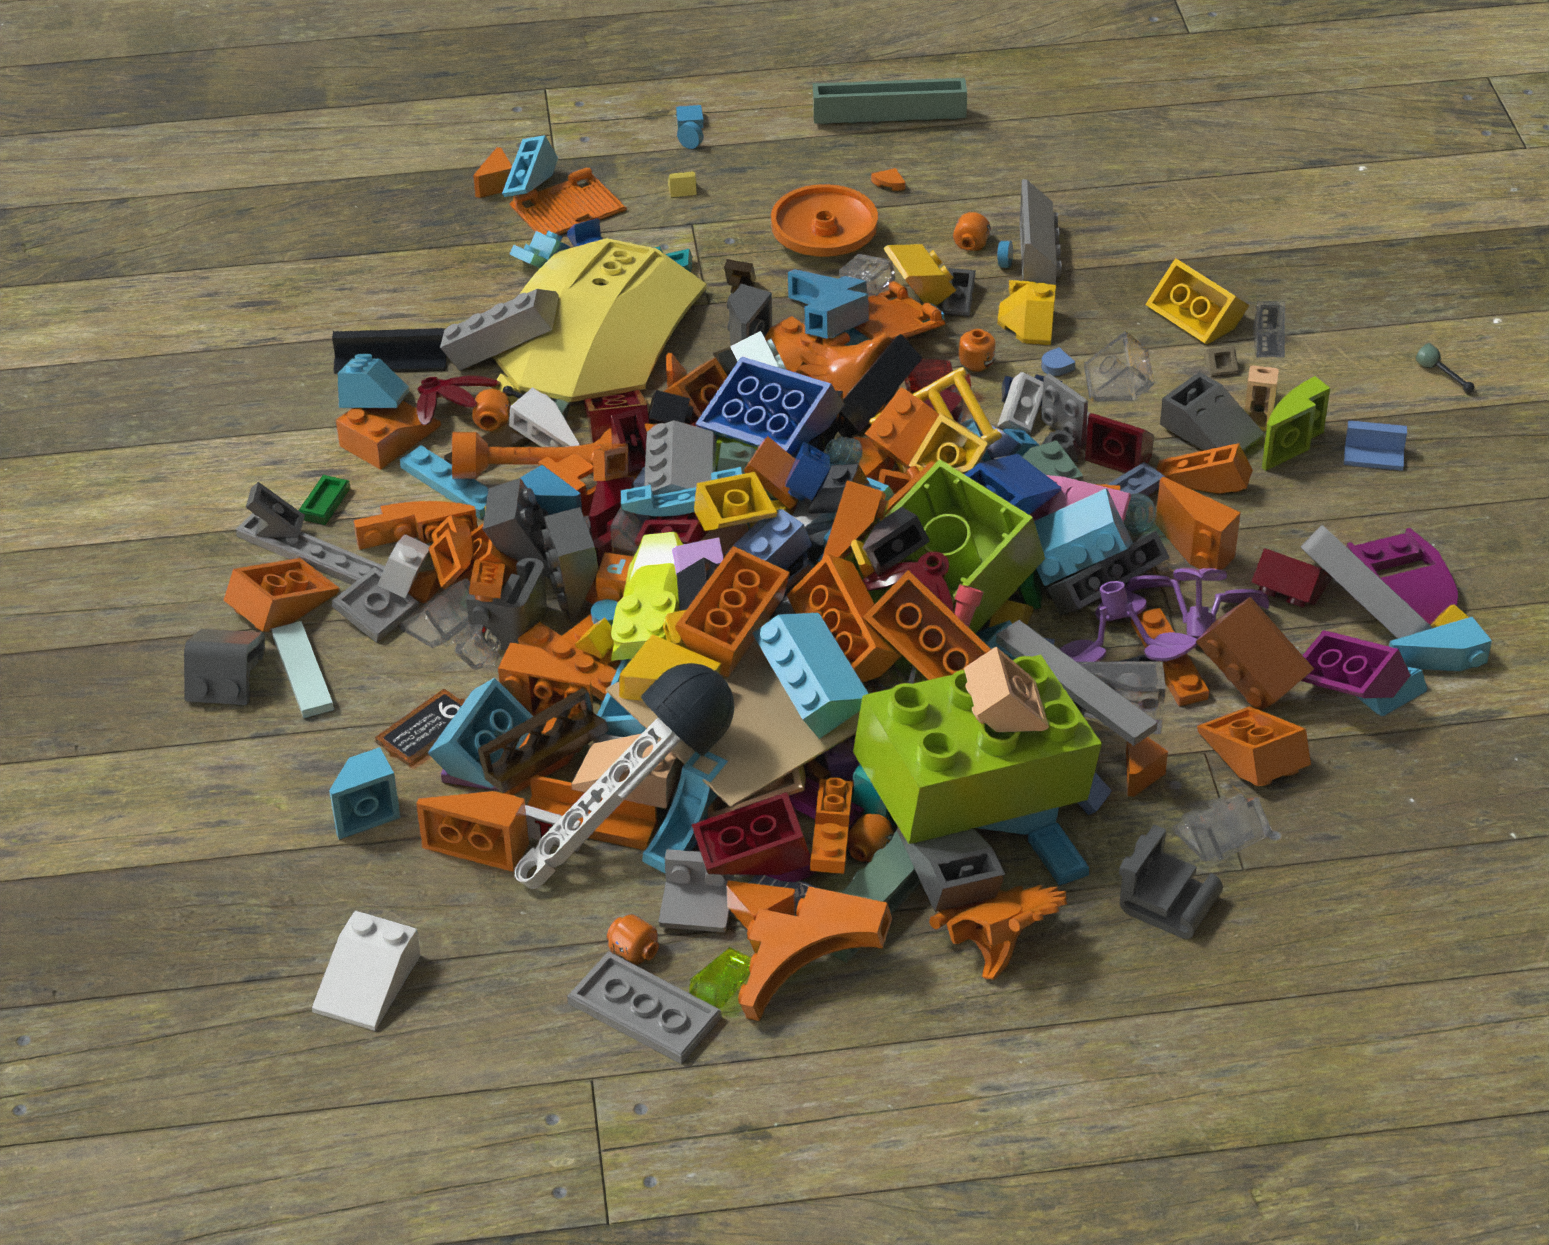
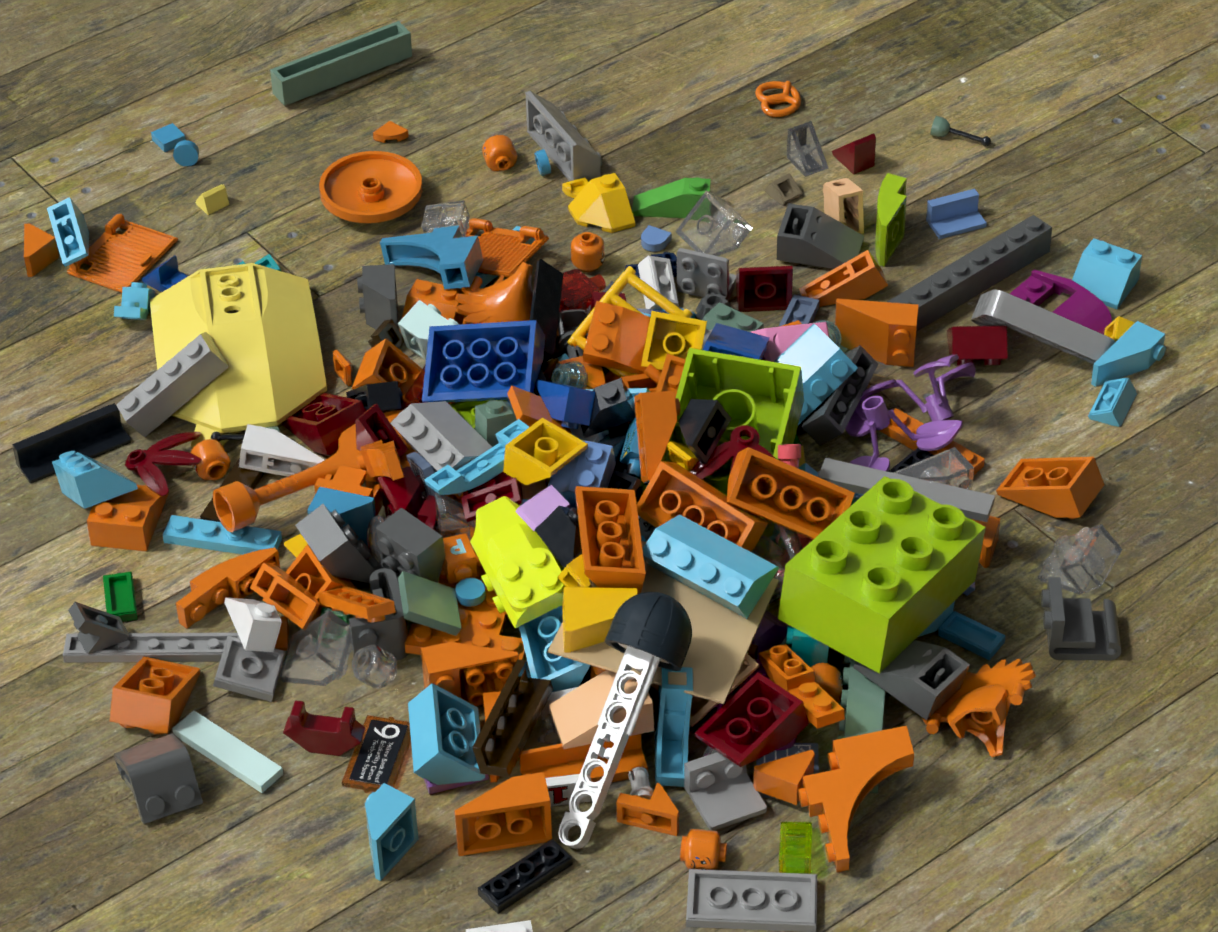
camera: 30 degrees left, 0 degrees up
(384, 685) = (323, 733): none -> dark red piece
(461, 891) = (525, 876): none -> black tile
(555, 607) = (429, 603): none -> sand green tile
(597, 639) = (480, 615): yellow slope -> none
(614, 885) = (652, 814): none -> orange slope
(623, 862) = (640, 783): none -> white pin
(739, 273) = (332, 261): dark brown tile -> none
(922, 271) = (493, 202): yellow slope -> none
(960, 301) = (527, 207): dark grey slope -> none
(1004, 694) = (902, 517): light nougat slope -> none
(1099, 329) = (672, 199): none -> bright green slope
(1196, 303) = (730, 148): yellow slope -> none
(1254, 654) = (1012, 413): dark orange slope -> none
(1290, 274) = (783, 97): none -> orange piece
(1320, 353) = (858, 154): none -> dark red slope
(1343, 508) = (978, 270): none -> dark grey brick
(1355, 666) = (1085, 394): magenta slope -> none
(1485, 560) = (1108, 272): none -> medium azure slope

